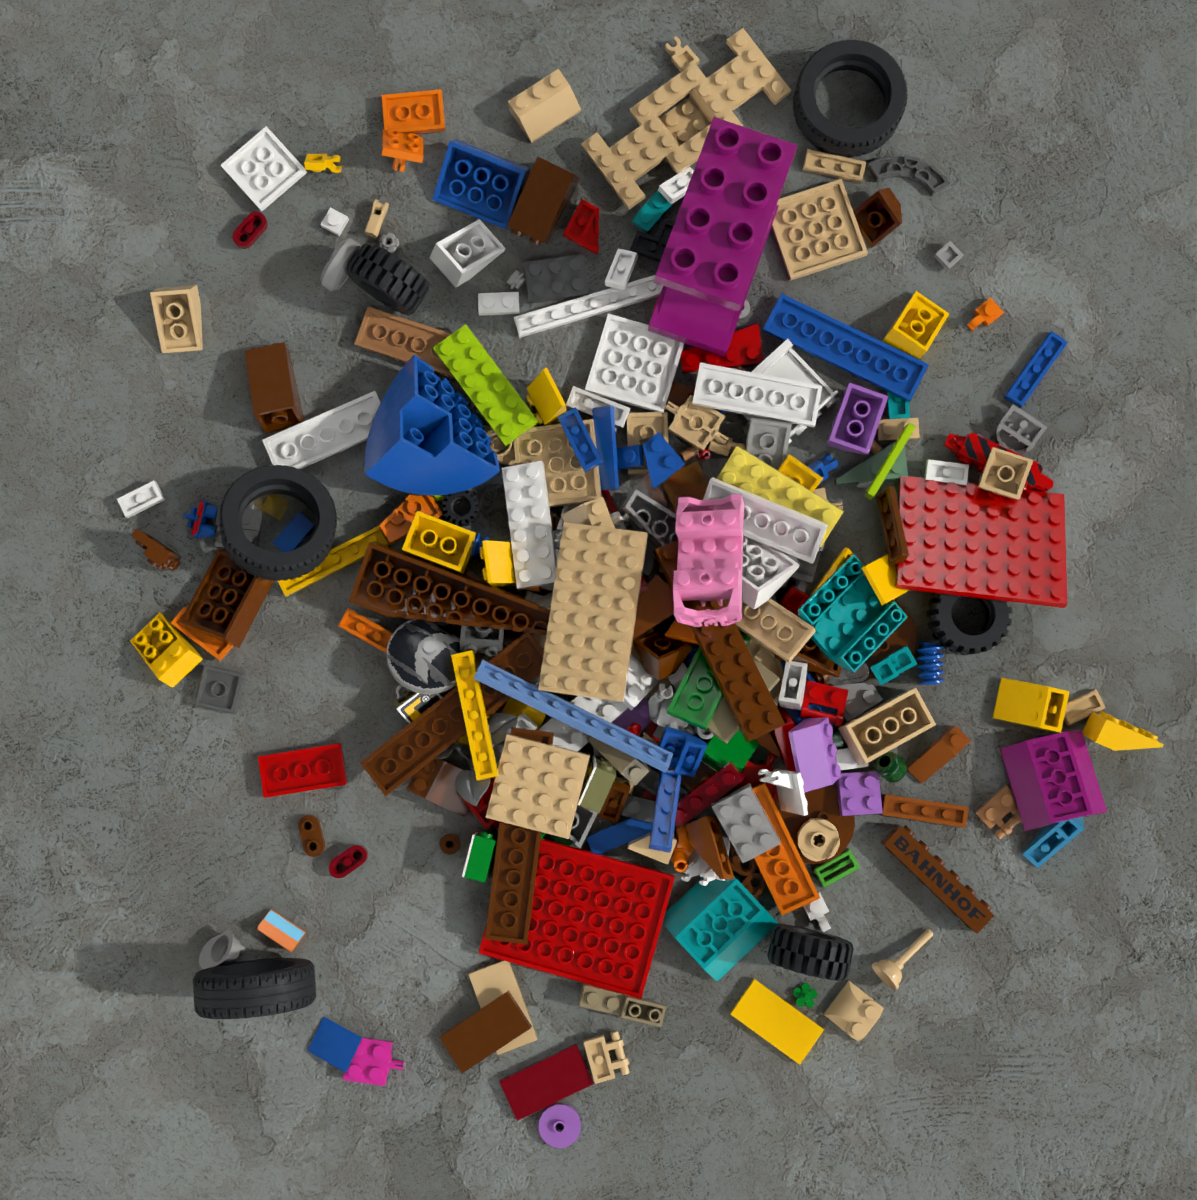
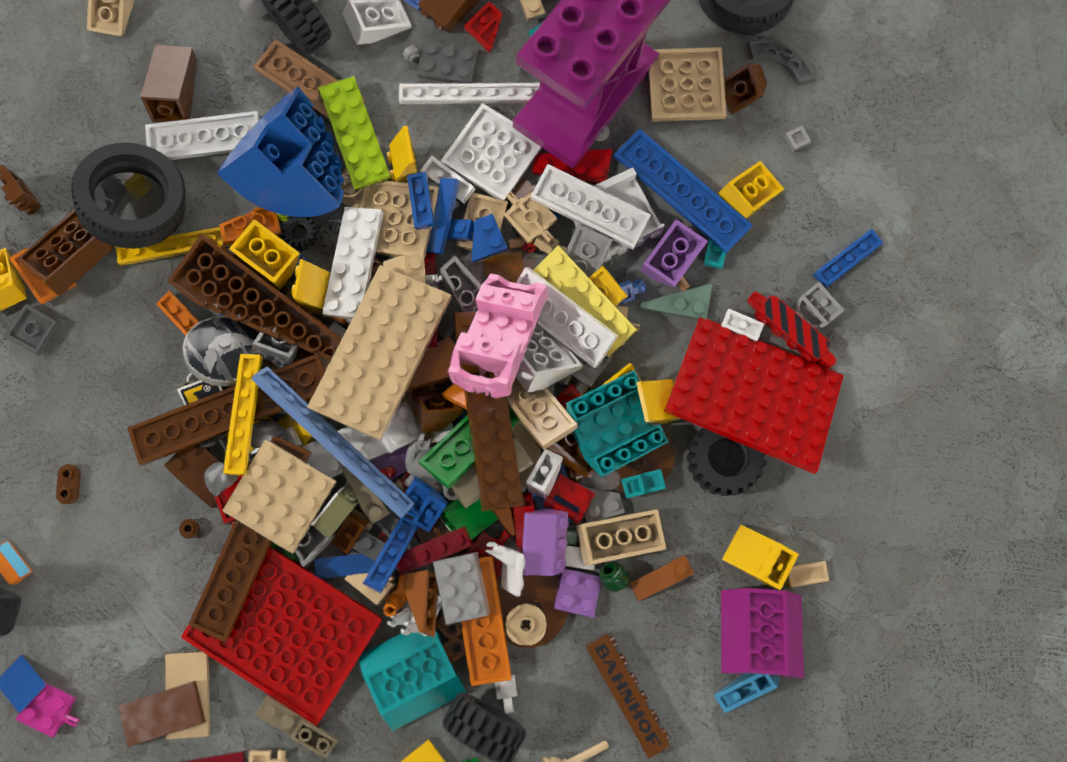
camera: 10 degrees right, 5 degrees down
(140, 499) = (23, 145): white plate -> none
(198, 518) = (64, 177): blue hips -> none
(294, 533) = (145, 210): blue tile -> none
(302, 770) = (80, 422): red plate -> none
(348, 860) = (92, 516): dark red plate -> none
(480, 856) = (208, 547): green piece -> none
(498, 303) = (390, 69): white plate -> none
(621, 269) = (503, 70): white plate -> none
(820, 876) = (537, 656): bright green tile -> none
(834, 166) = (718, 36): tan tile -> none
(889, 461) = (693, 298): lime tile -> none
(891, 429) = (707, 274): tan plate -> none
(892, 526) = (678, 357): reddish brown tile -> none
(924, 810) = (634, 627): dark orange plate -> none
(930, 664) = (677, 492): blue piece -> none
(985, 314) = (816, 197): orange plate -> none
(996, 808) = (701, 645): medium nougat plate -> none
(1005, 473) = (794, 339): tan slope -> none
(1118, 733) = (834, 609): yellow slope -> none

